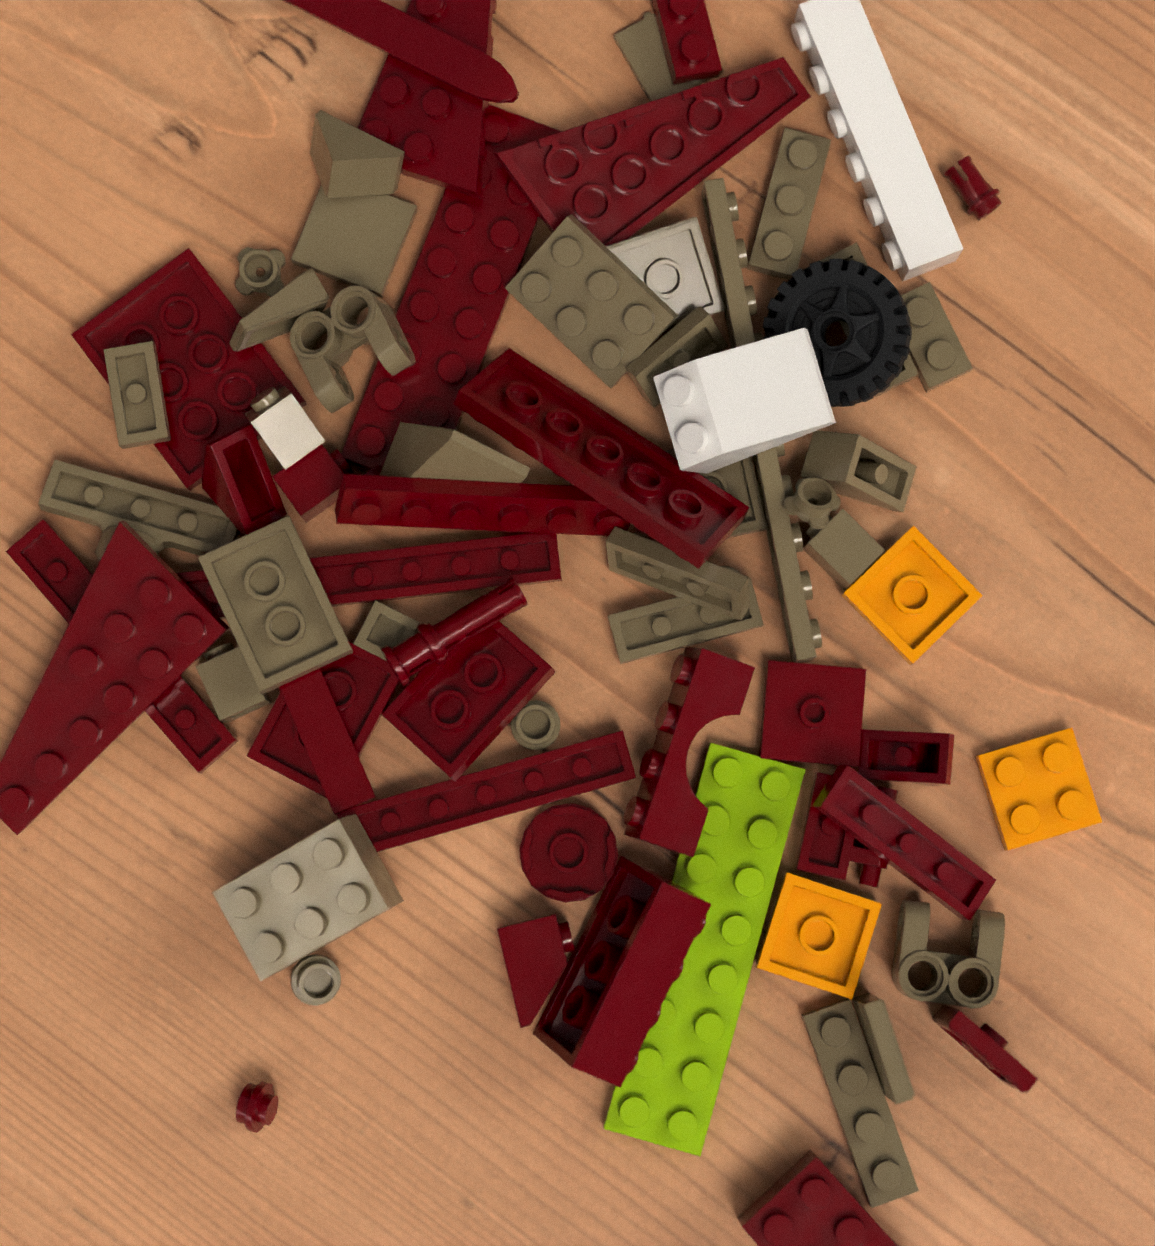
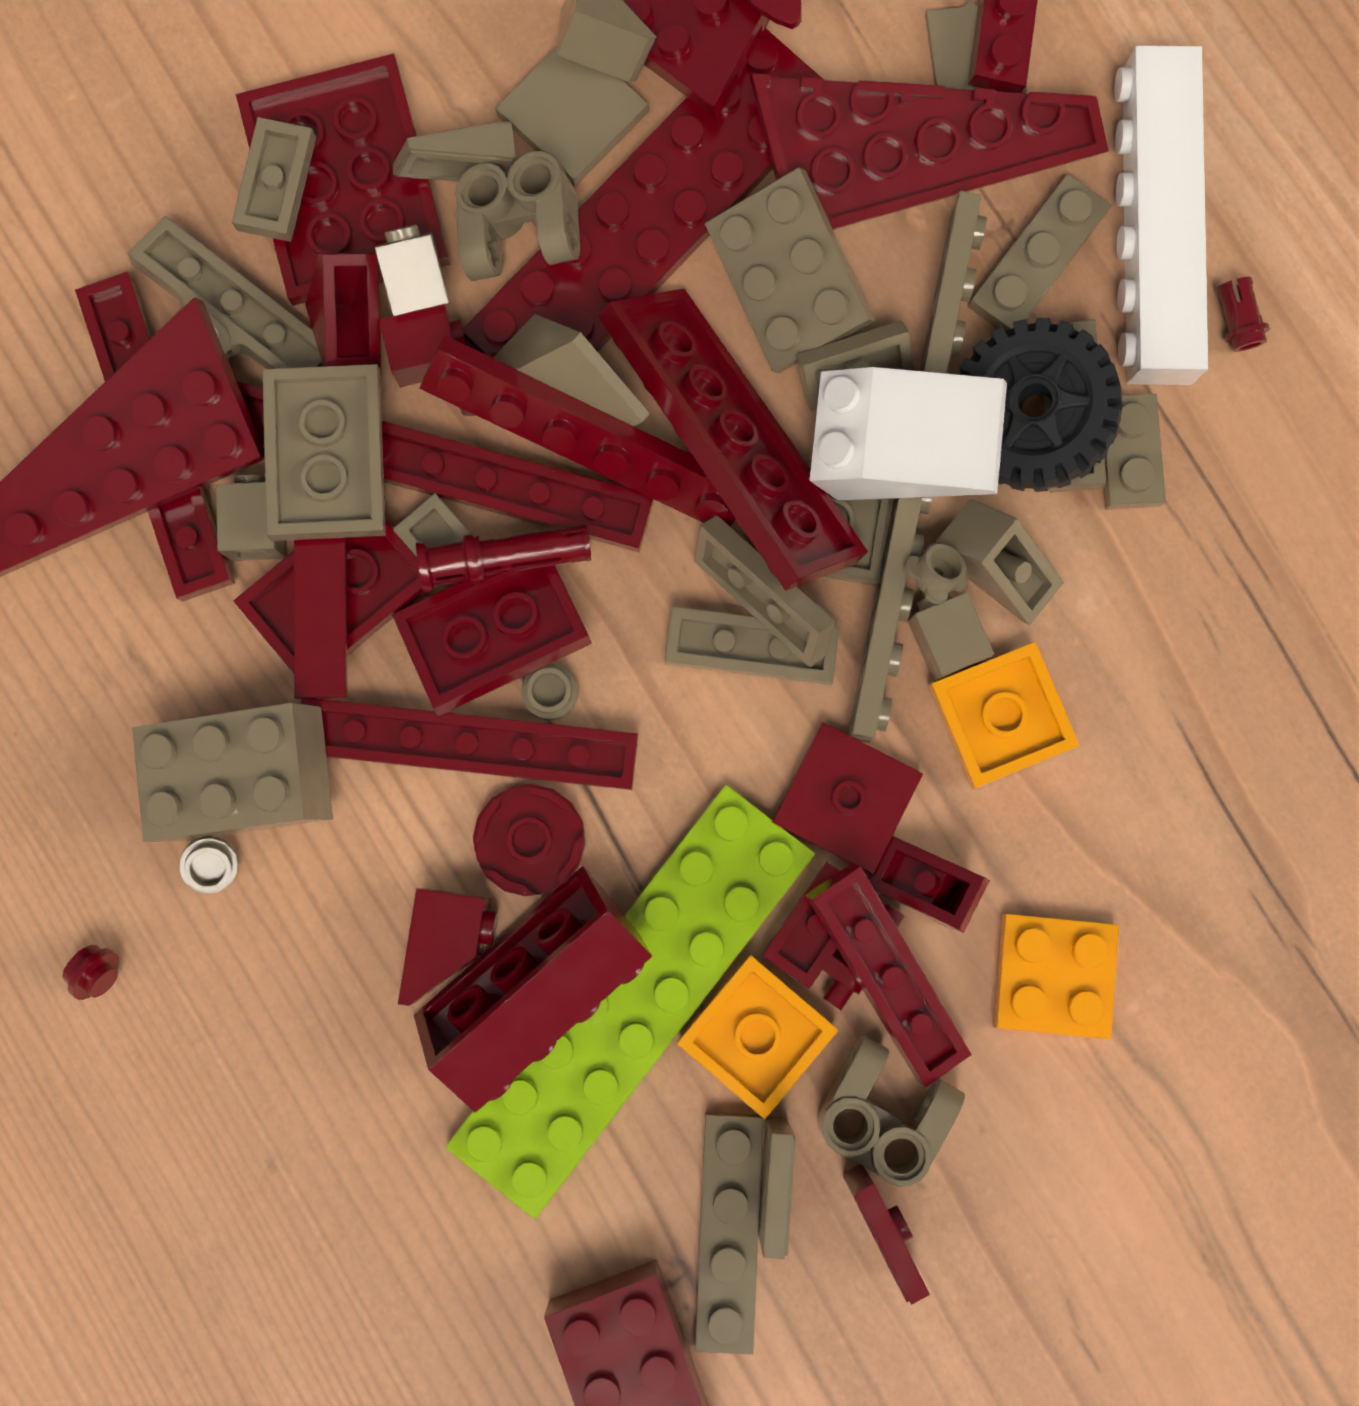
camera: 25 degrees right, 0 degrees up
(250, 262) = (456, 94): dark tan plate -> none
(665, 805) = (649, 833): dark red arch -> none
(674, 267) = (892, 270): tile -> none

